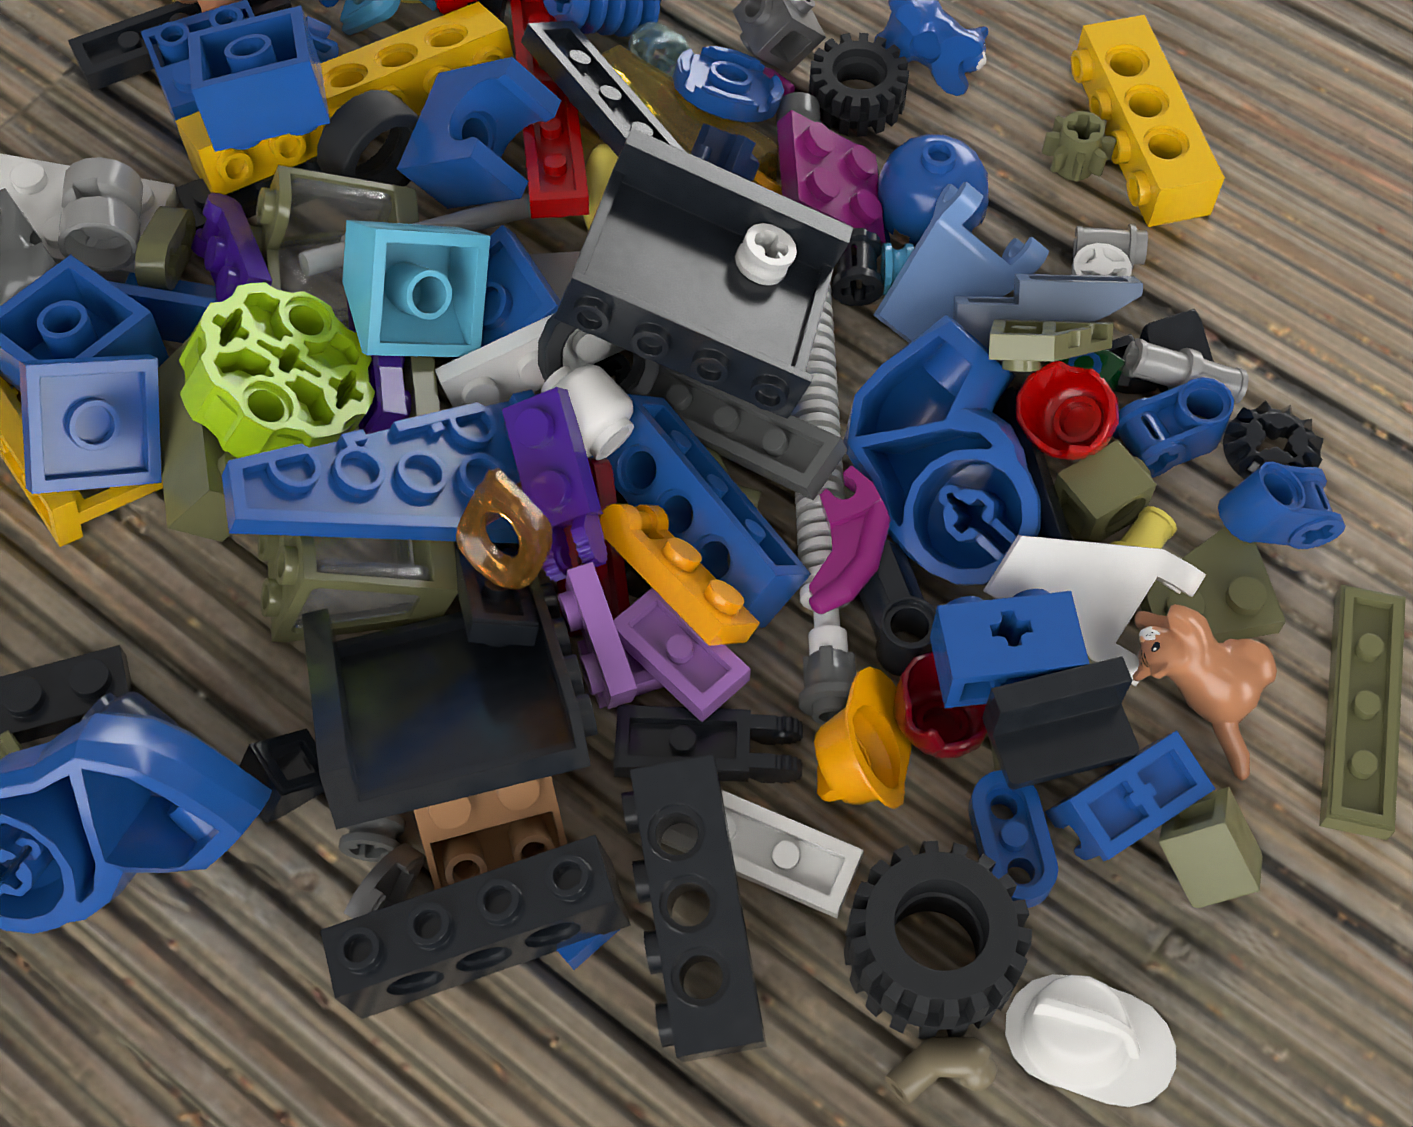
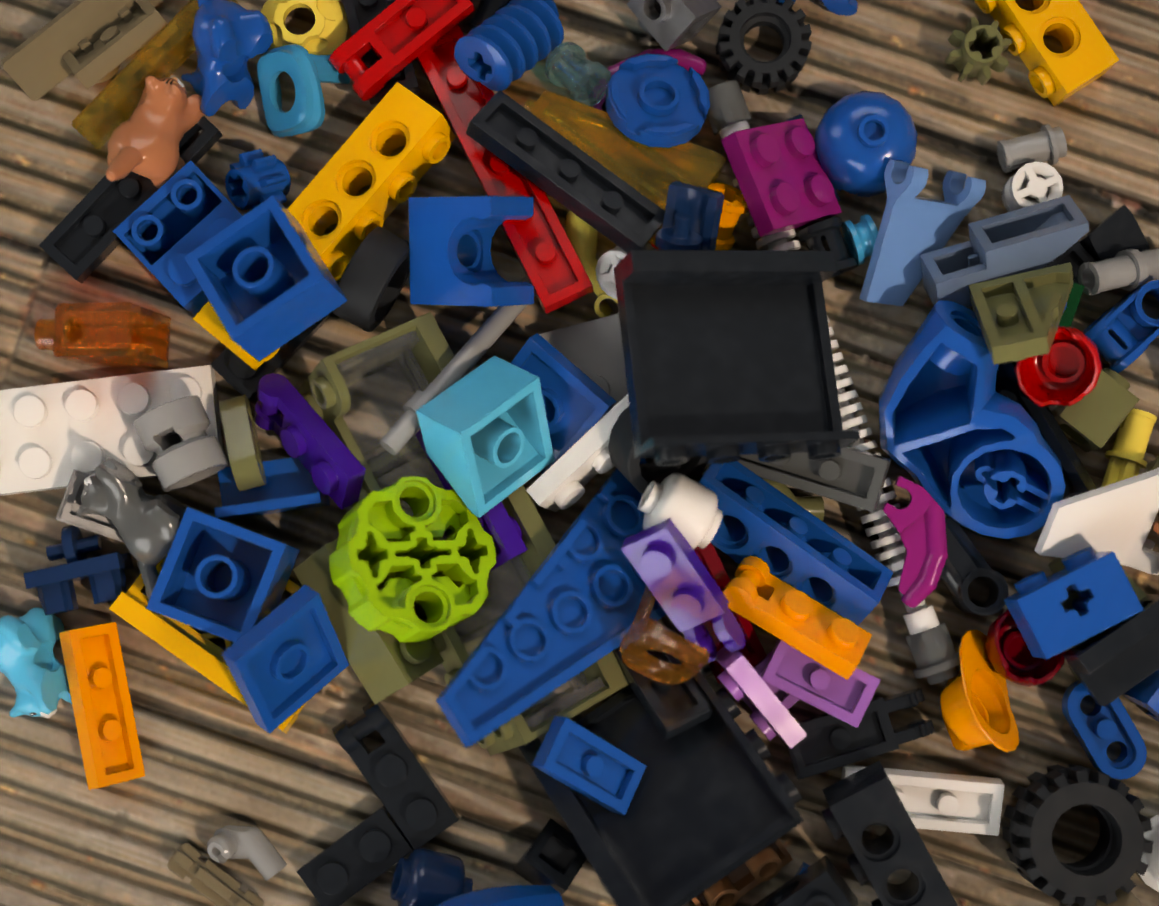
camera: 20 degrees left, 25 degrees up
(88, 115) = (106, 335): none -> clear orange torso
(156, 623) = (397, 775): none -> black plate
(368, 637) = (589, 765): none -> blue plate
(752, 259) = (764, 317): white bush -> none

